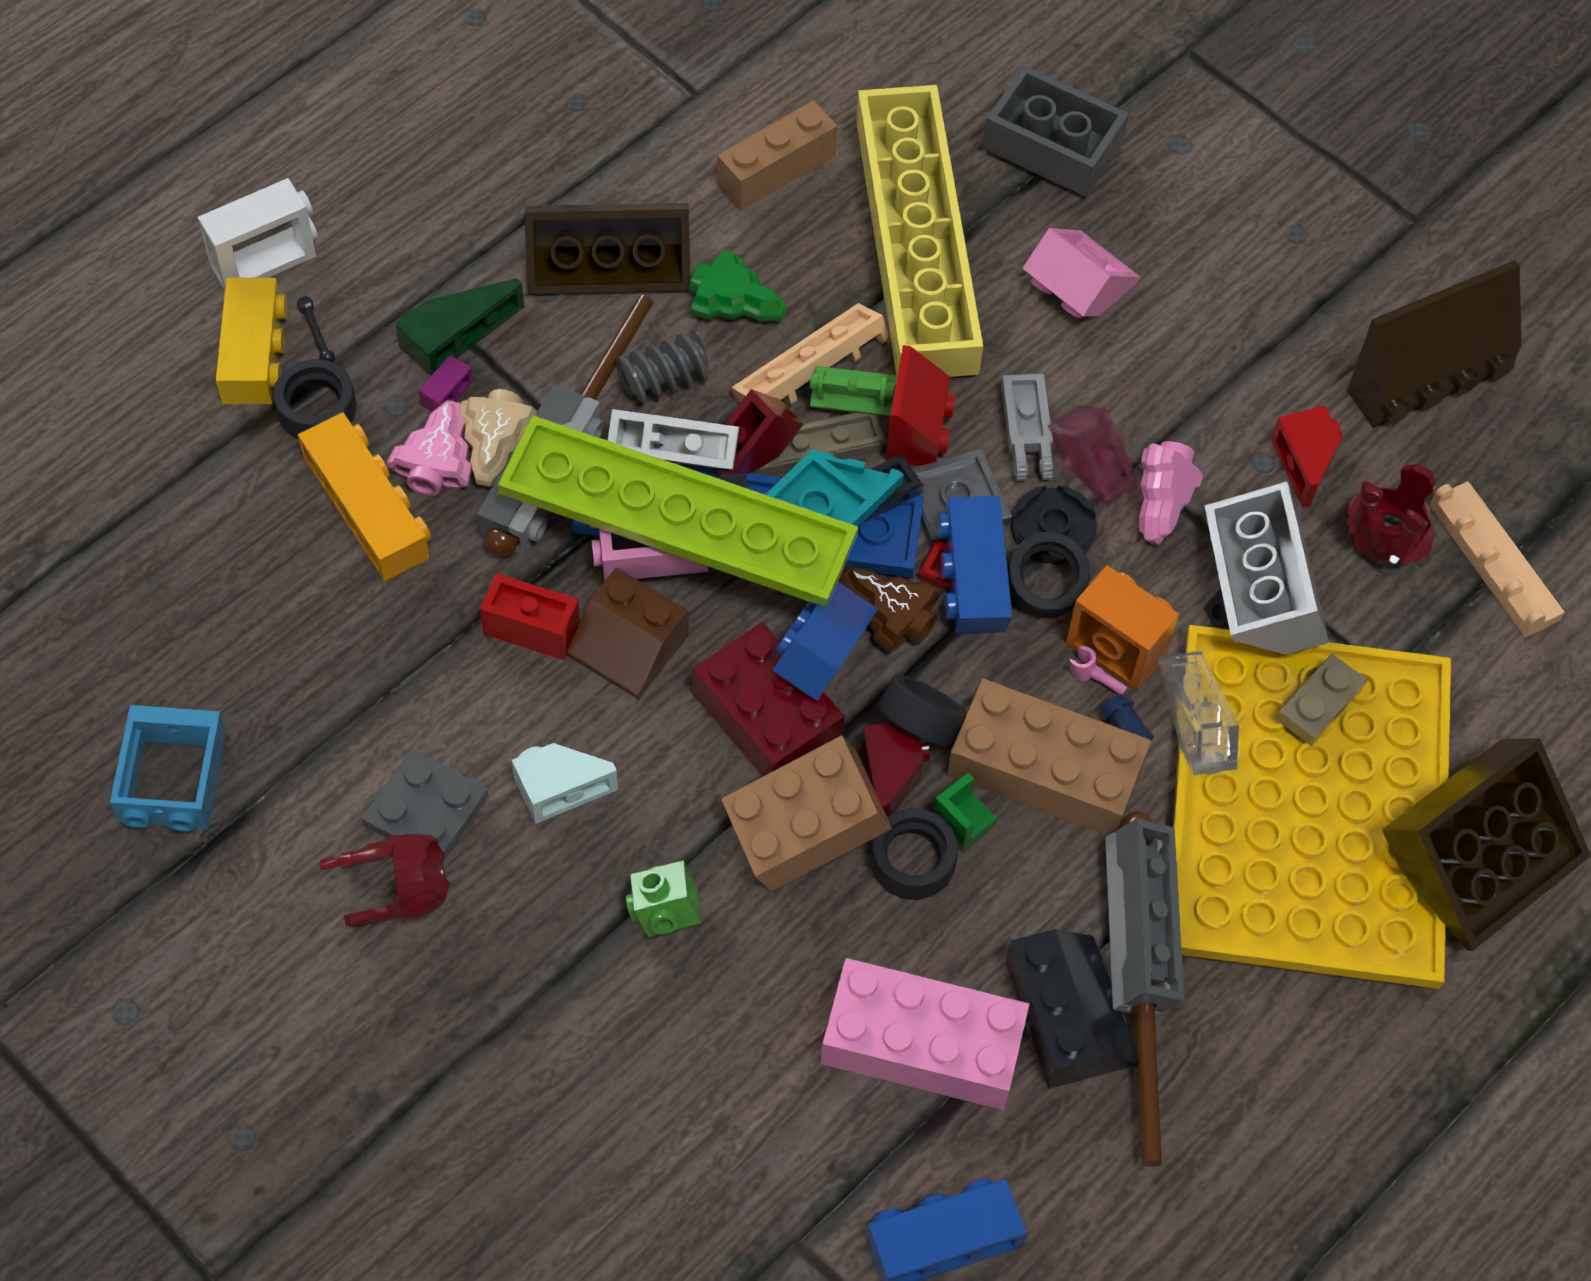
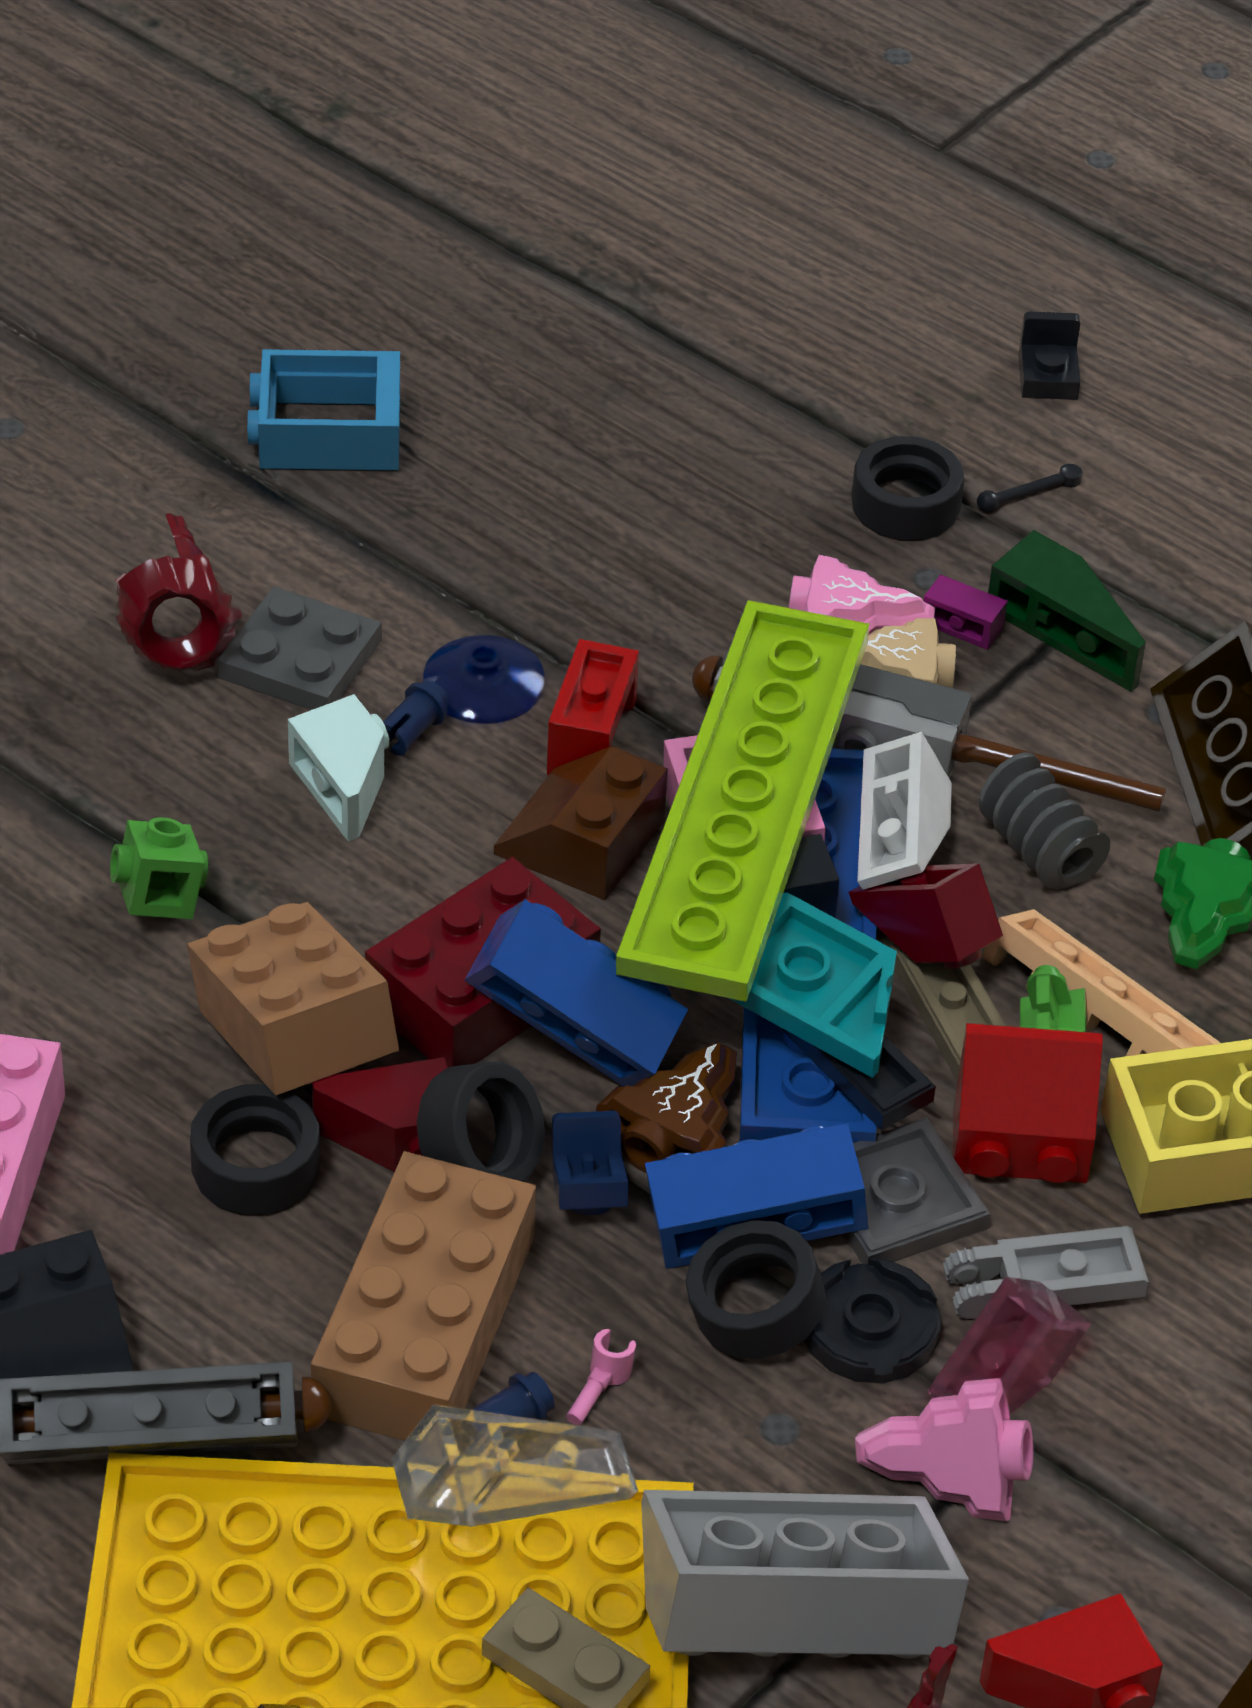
camera: 85 degrees right, 15 degrees down
(185, 296) = (1049, 356): none -> black bracket
(250, 340) = (991, 413): yellow brick -> none
(251, 217) = (1126, 342): white window -> none
(365, 496) = (759, 542): light orange brick -> none
(464, 707) = (486, 678): none -> clear blue dish
(509, 731) = (423, 706): none -> dark blue pin
(942, 659) = (588, 1162): none -> dark blue bracket
(964, 812) = (324, 1199): green panel -> none
(1122, 627) = (661, 1367): orange brick -> none

